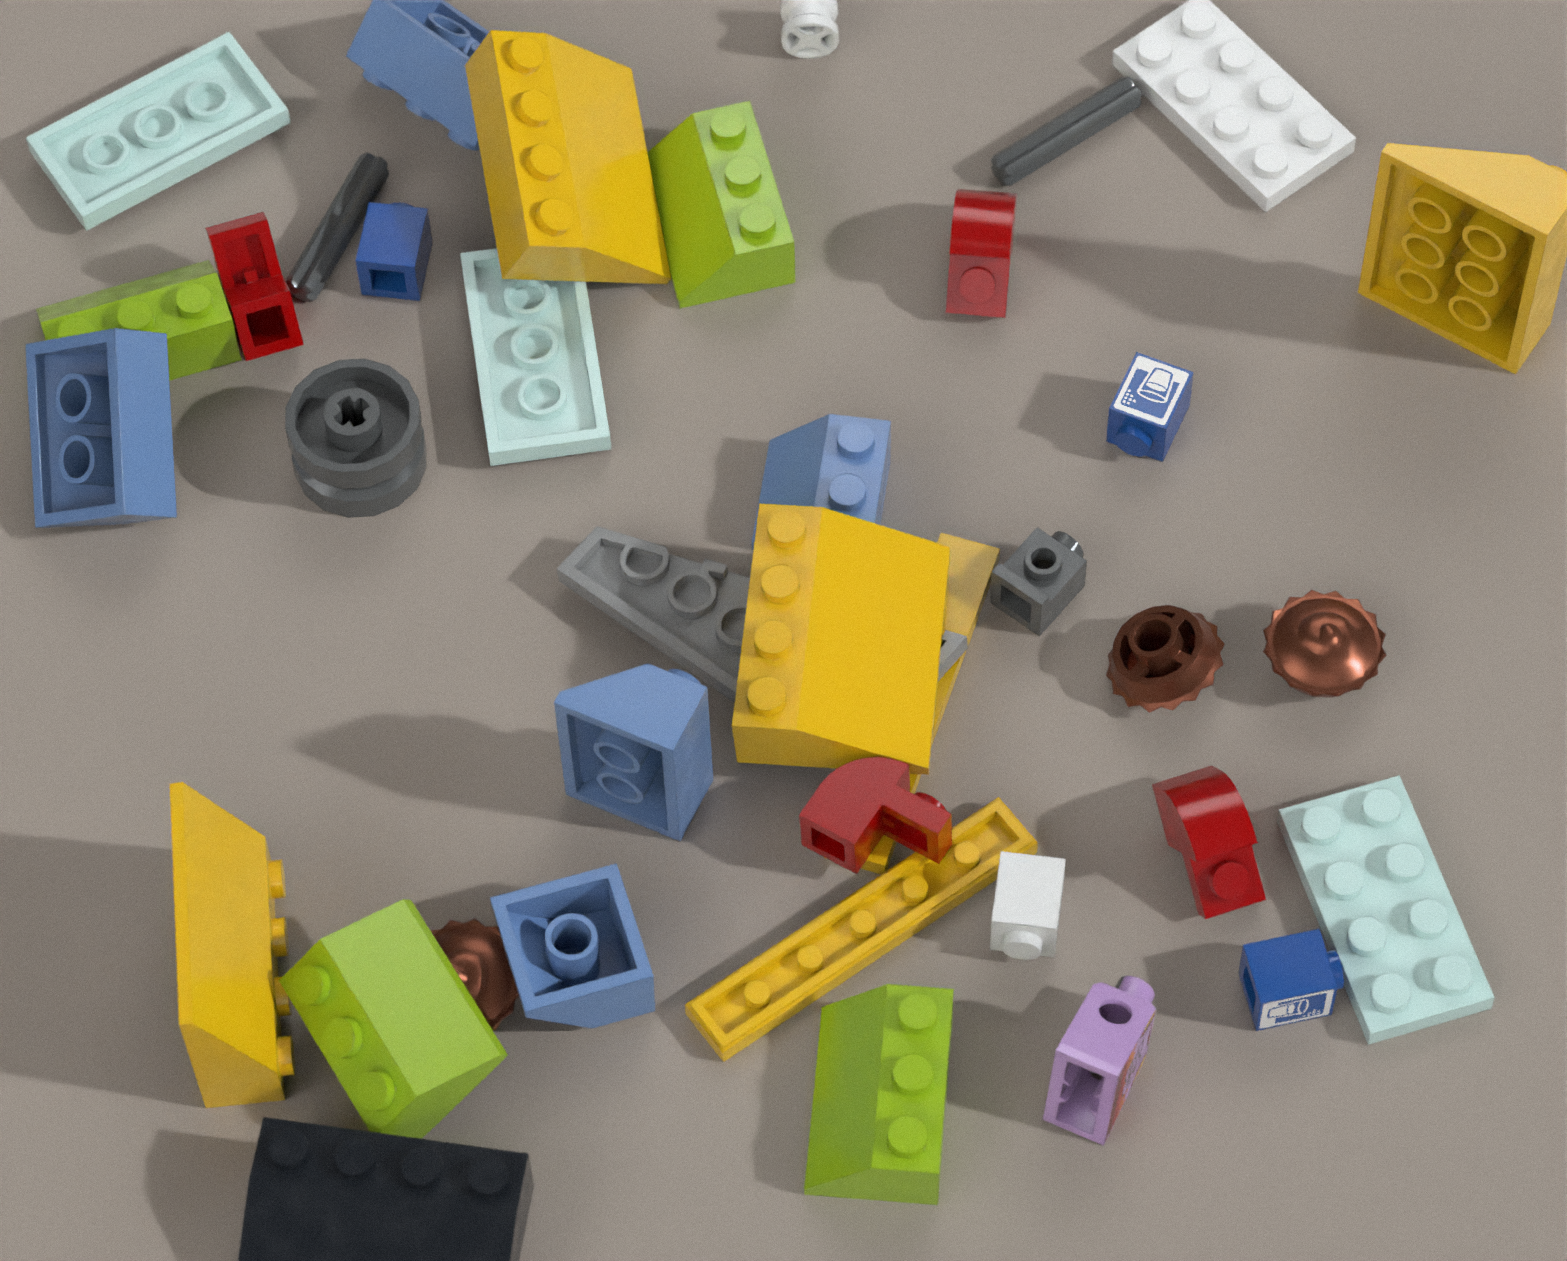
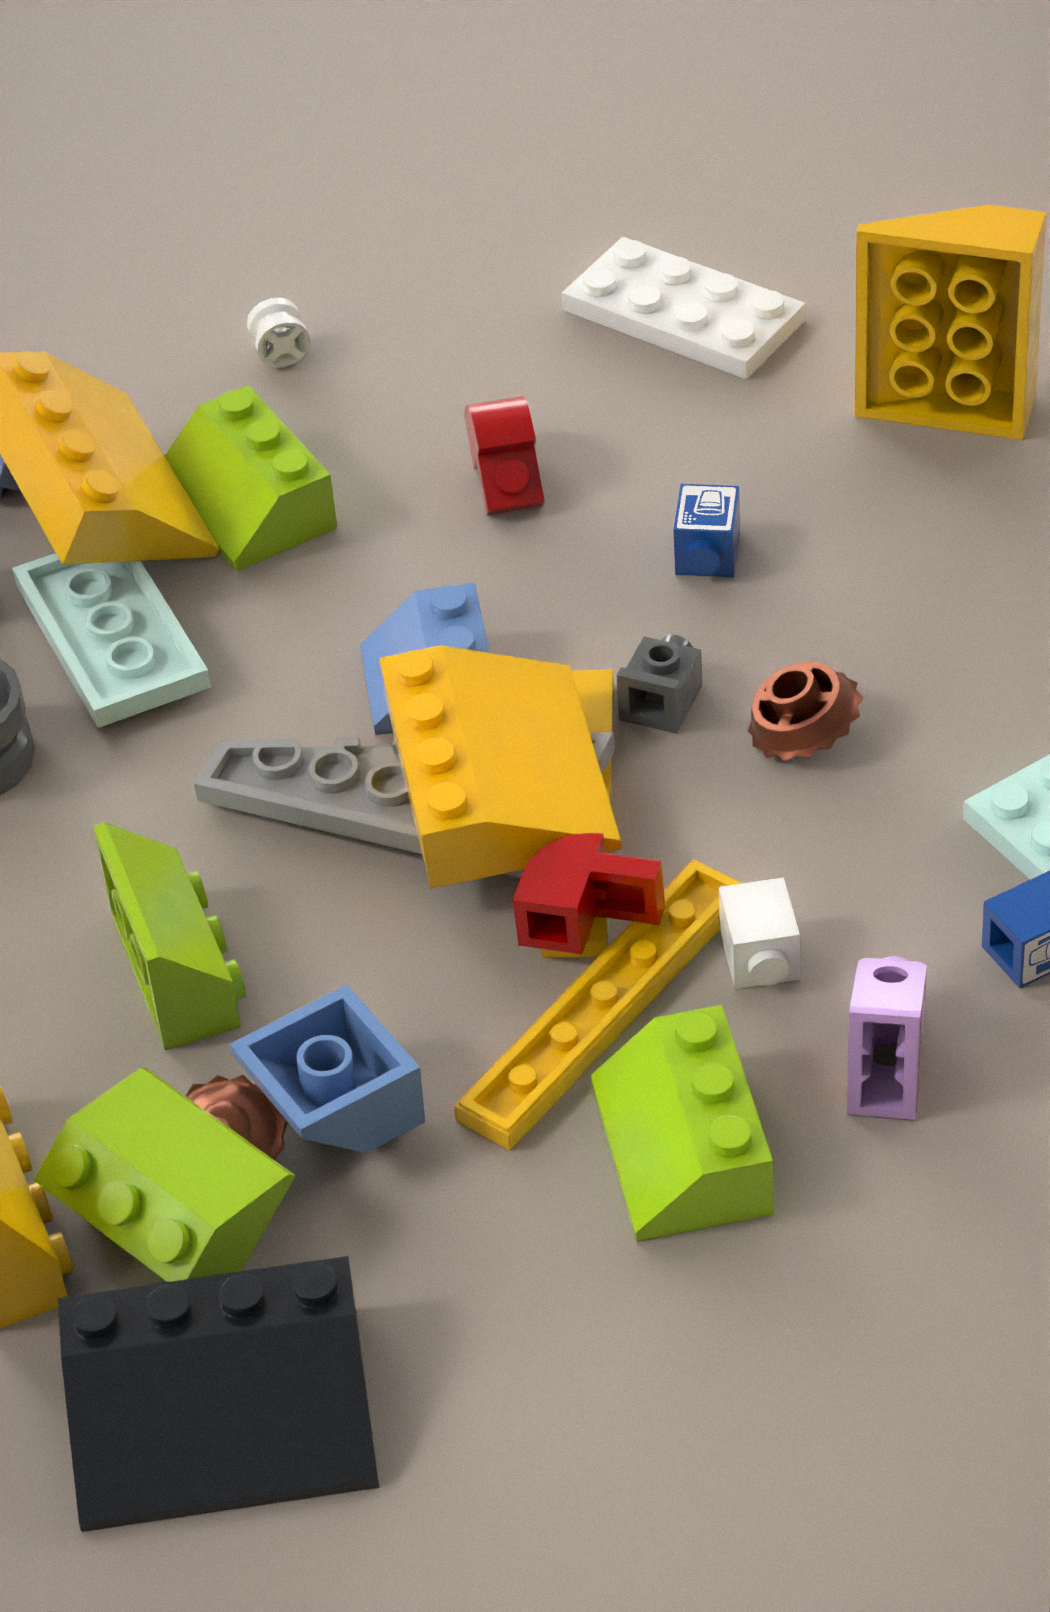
camera: 15 degrees left, 15 degrees down
(480, 743) = (169, 938): none -> lime slope
(638, 746) = (330, 883): medium blue slope -> none
(1066, 131) = (546, 355): dark grey axle -> none
(1216, 837) = (913, 823): red brick -> none
(1324, 644) = (949, 663): copper piece -> none

